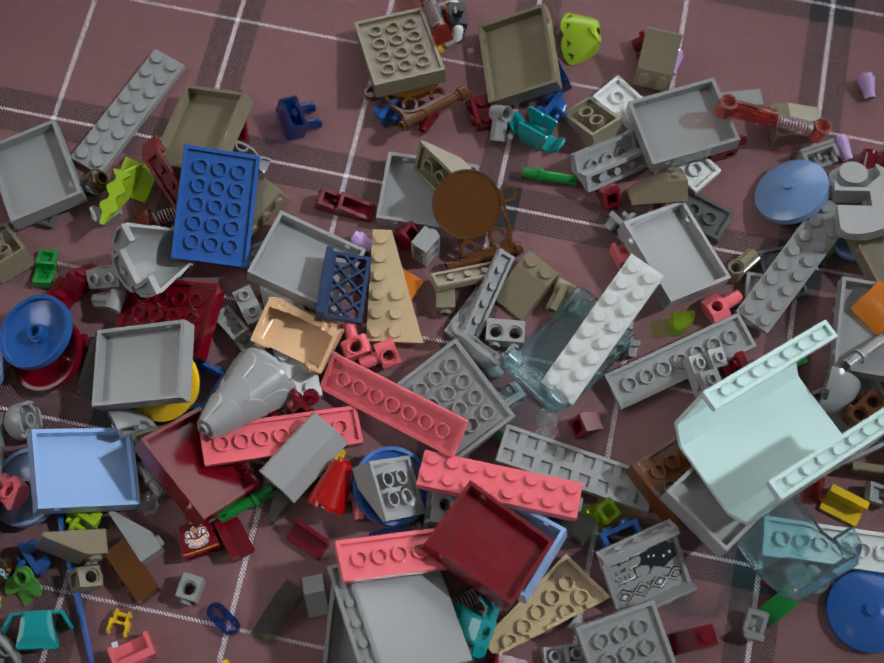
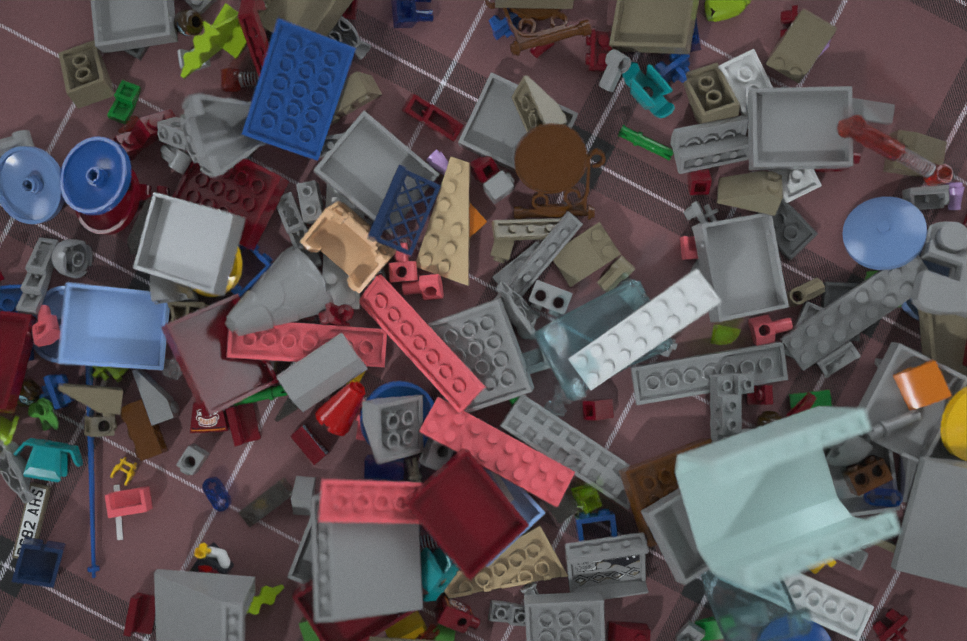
camera: 20 degrees right, 20 degrees up
(795, 314) = (838, 358): none -> light grey hinge

